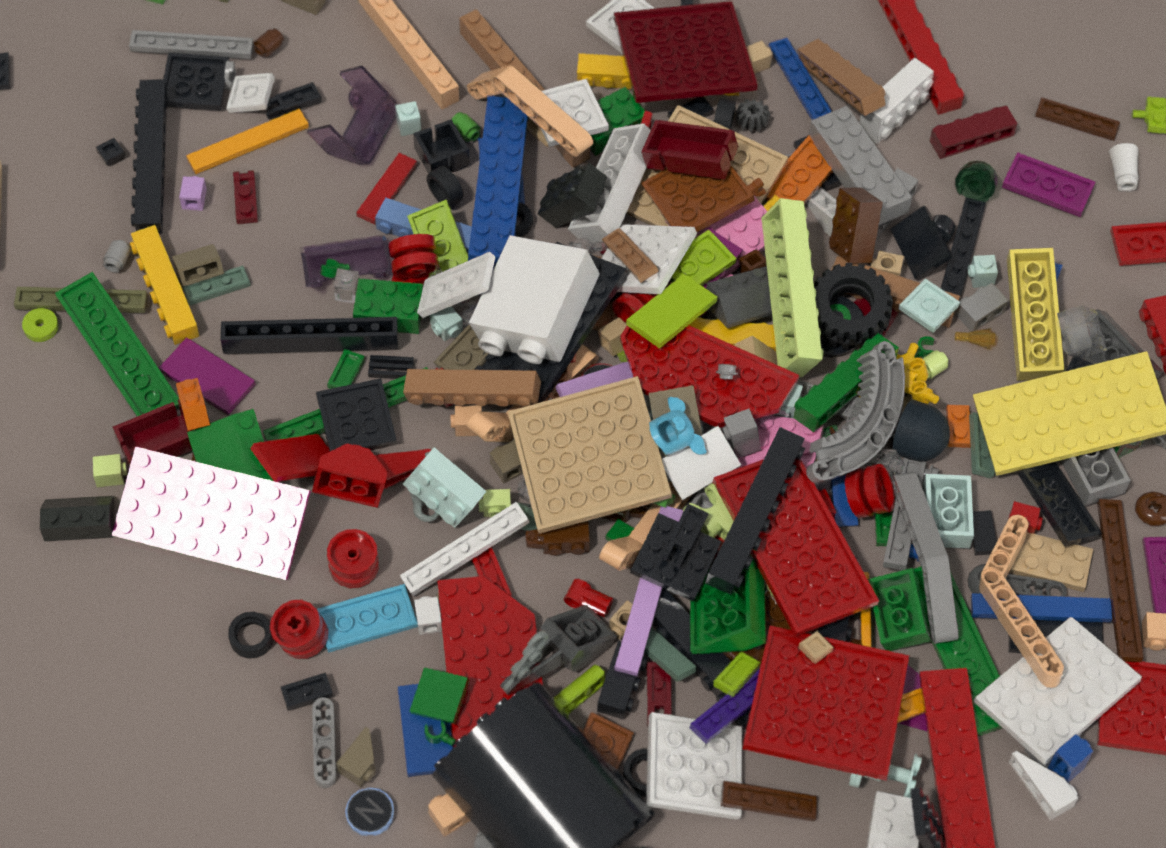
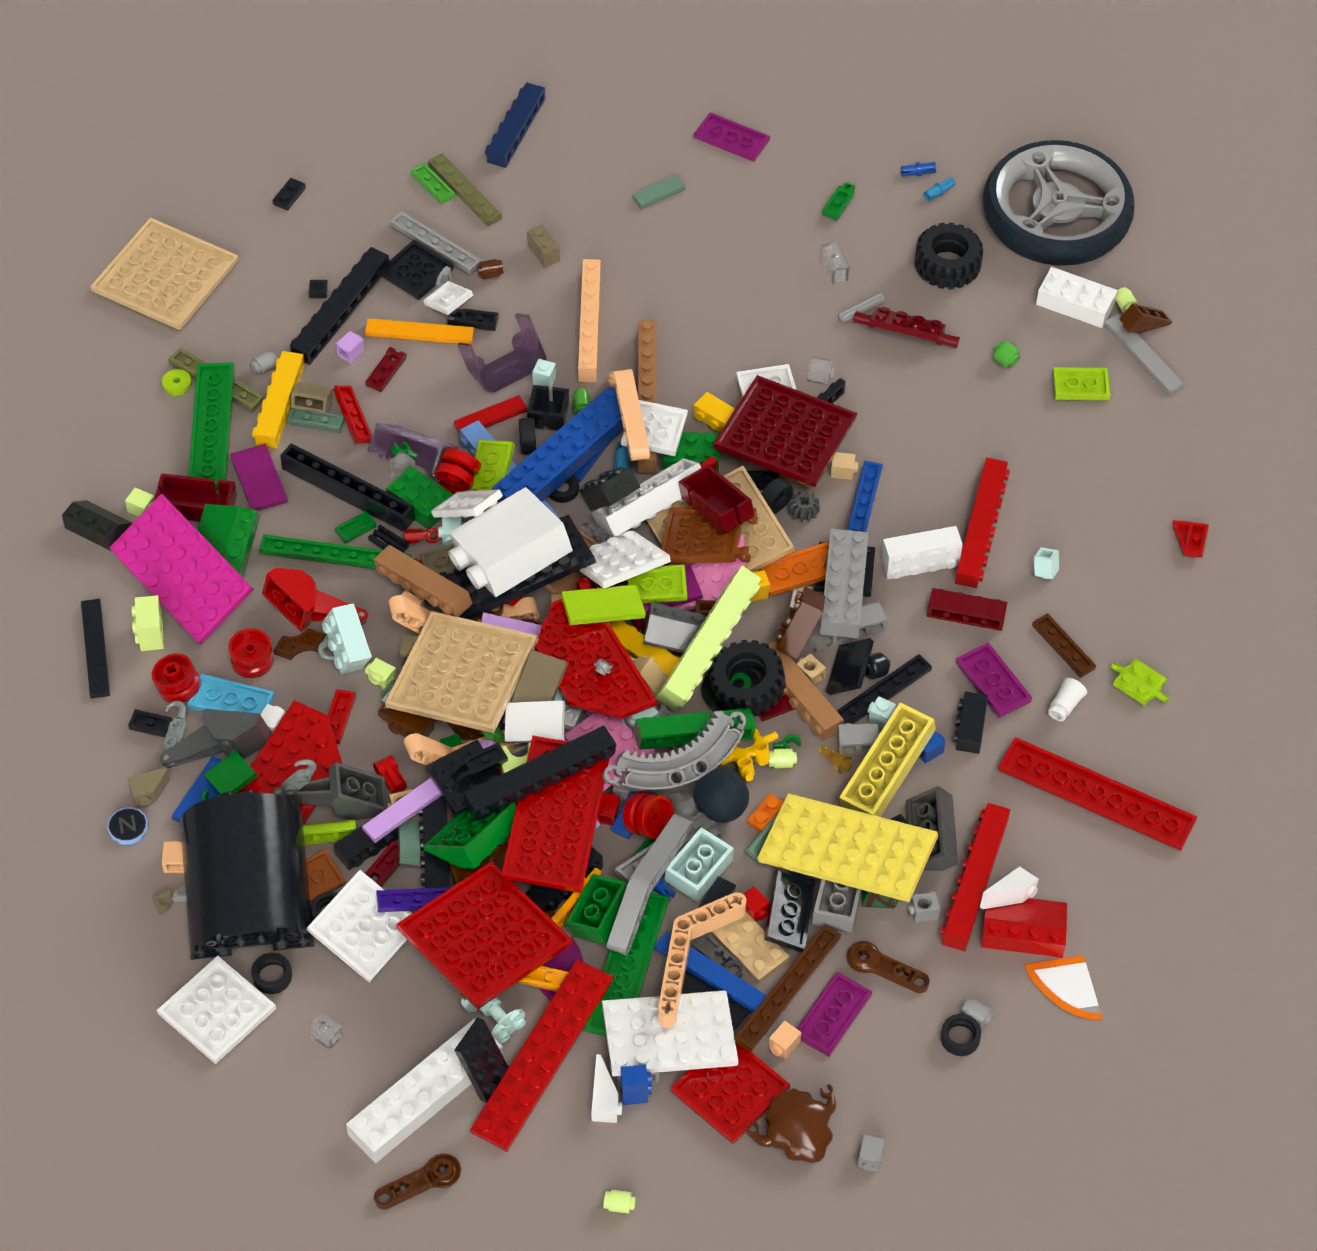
camera: 35 degrees right, 5 degrees down
(183, 648) = (95, 648): none -> black tile
(192, 404) = (219, 485): orange brick -> none
(224, 589) = (148, 623): none -> yellowish green brick
(243, 620) = (137, 655): black tyre -> none
(251, 259) = (352, 414): none -> red tile
(290, 456) = (258, 558): red tile -> none
(321, 742) = (132, 761): light grey beam -> none
(356, 415) = (332, 559): black plate -> none
(393, 657) = (222, 732): none -> dark grey slope
(394, 512) = (291, 646): none -> reddish brown tile
(415, 345) = (416, 535): none -> red plate
(464, 549) = (330, 689): white plate -> none
(549, 160) = (622, 457): none -> dark azure piece
(630, 255) = (609, 550): medium nougat tile -> none
(675, 431) = (528, 685): medium azure piece -> none
(736, 674) = (439, 879): lime tile -> none
(742, 433) = (581, 717): light grey brick -> none
(768, 801) = (398, 981): reddish brown tile -> none
(815, 647) = (508, 893): tan tile -> none
(842, 77) = (889, 511): medium nougat brick -> none
(929, 305) = (811, 712): light aqua tile -> none
(976, 180) = (935, 645): clear green cylinder -> none
(1007, 51) = (1046, 563): none -> light aqua brick
(1064, 234) = (970, 722): none -> black brick
(1081, 332) = (910, 795): clear brick -> none

